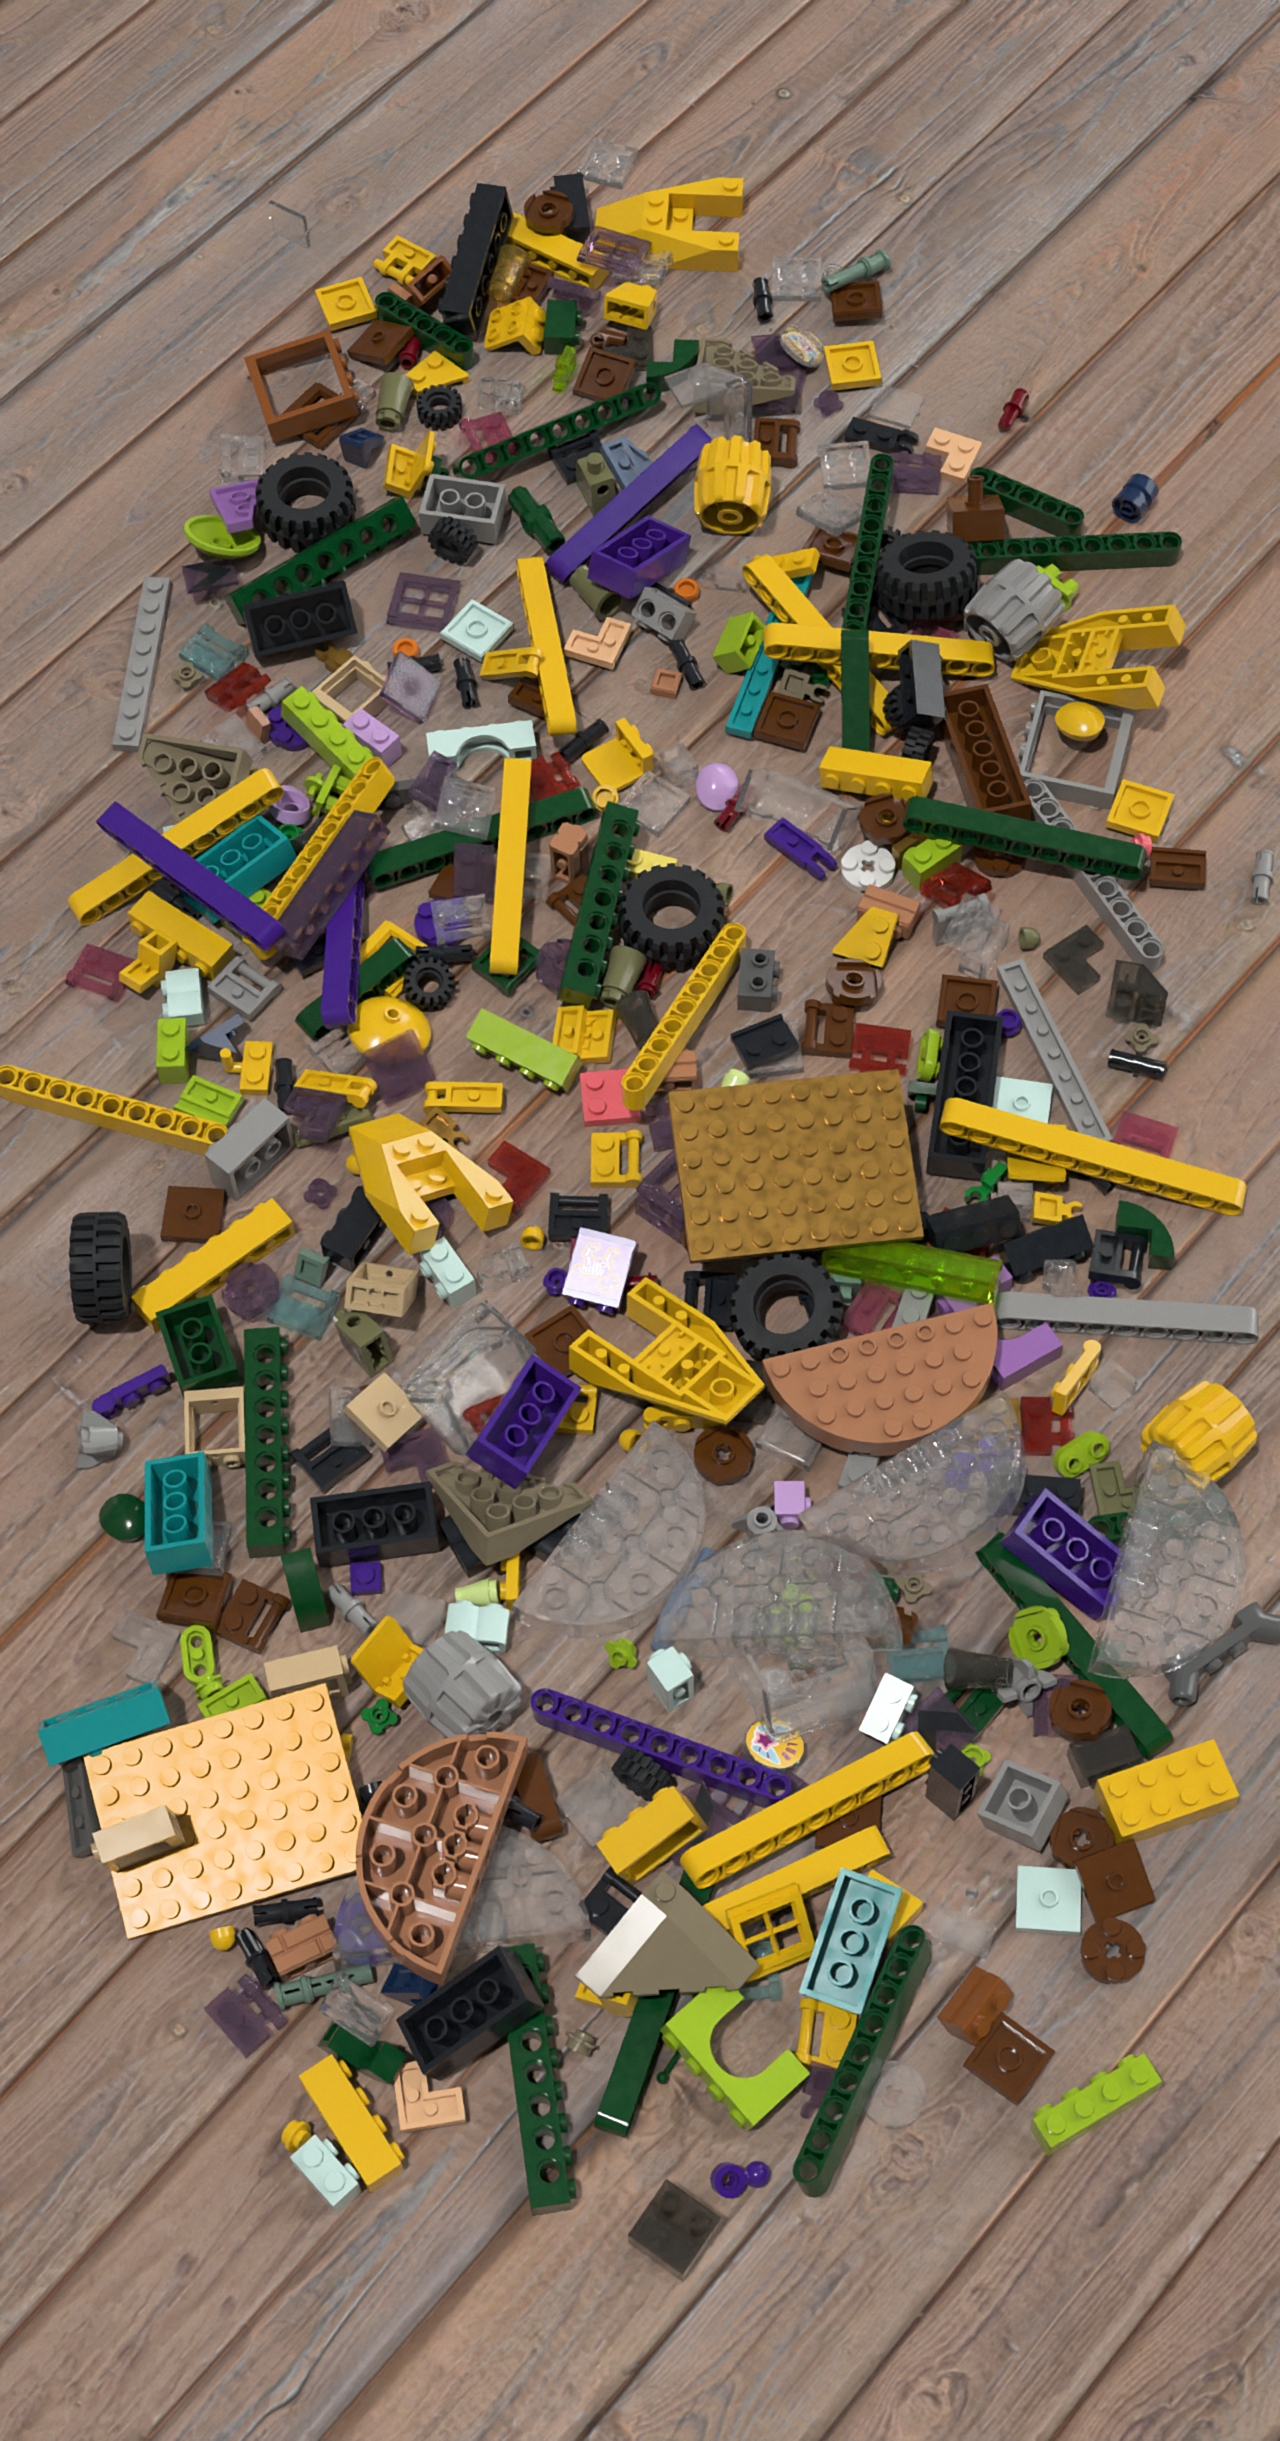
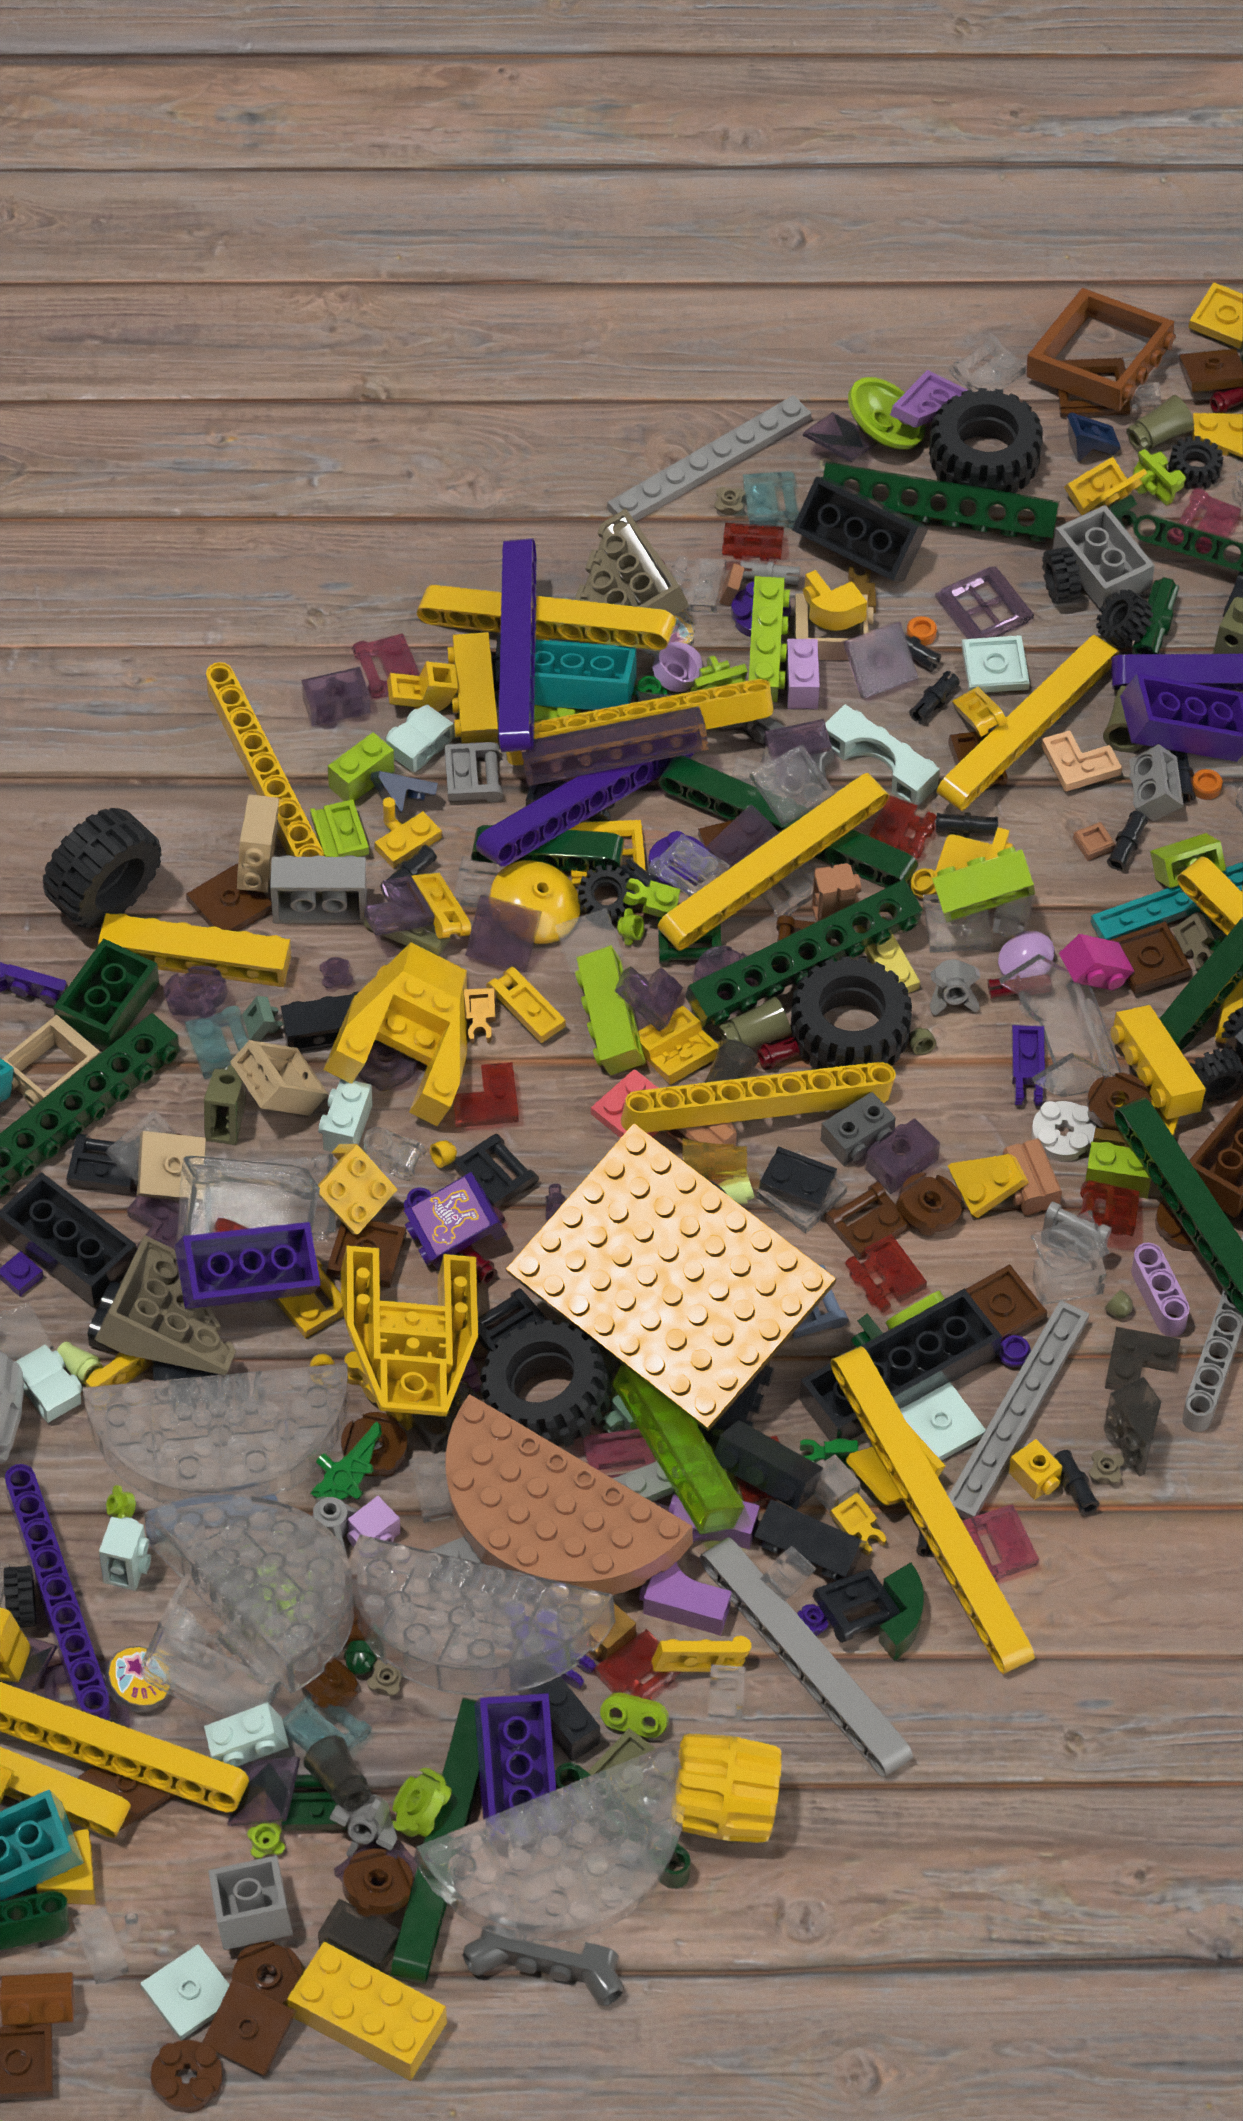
camera: 45 degrees right, 5 degrees down
(96, 1008) = (336, 696): none -> clear purple brick
(177, 1157) = (257, 843): none -> tan window
(347, 681) = (833, 608): none -> yellow brick
(418, 428) = (1158, 479): none -> lime hips
(451, 1021) = (587, 935): none -> clear piece
(466, 954) = (657, 897): none -> lime plate
(466, 989) = (630, 927): none -> lime plate
(510, 533) = (1124, 618): none -> black tyre
(518, 1306) = (355, 1187): none -> yellow bracket
(538, 1016) = (651, 999): none -> plate
(606, 1159) = (571, 1153): yellow plate -> none
(659, 760) = (983, 884): none -> lime brick
(700, 841) = (953, 985): none -> light grey brick
(711, 1073) = (715, 1159): none -> clear yellow plant
(734, 1490) = (345, 1476): none -> green piece
(769, 749) = (1096, 962): none -> dark pink brick
(800, 956) = (894, 1169): none -> clear purple brick
(951, 1781) = (215, 1826): black brick -> none
(1054, 906) = (1160, 1302): none -> lavender beam
(1109, 1078) = (1035, 1470): none -> yellow brick

